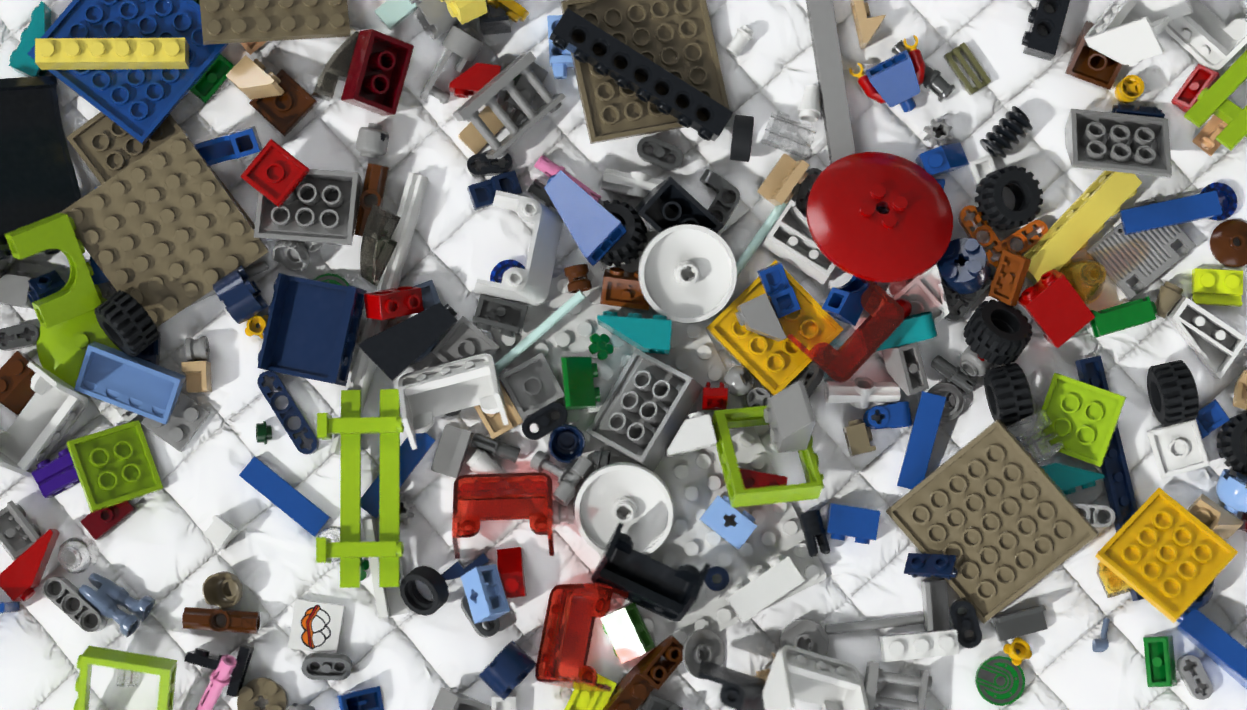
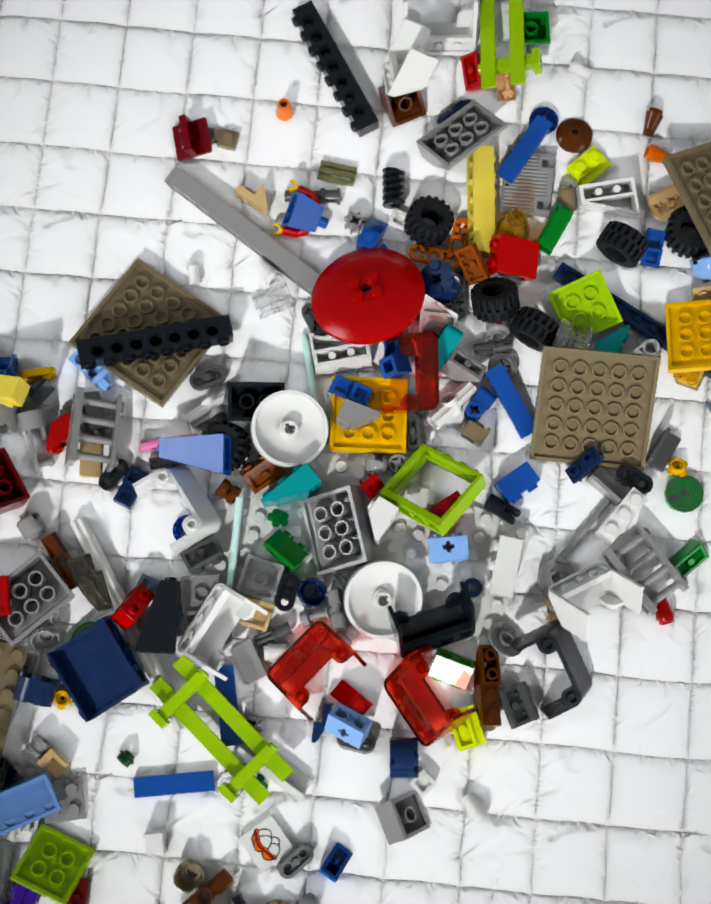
camera: 45 degrees left, 5 degrees down
(290, 411) = (129, 733): dark blue beam -> none
(433, 581) = (310, 747): black tyre -> none
(721, 187) = (260, 364): dark grey piece -> none
(742, 138) = (247, 325): black tyre -> none
(782, 179) = (293, 327): tan bracket -> none
(790, 418) = (427, 454): light grey slope -> none
(1133, 85) = (438, 99): yellow wheel -> none
(1178, 448) = (653, 273): white tile -> none

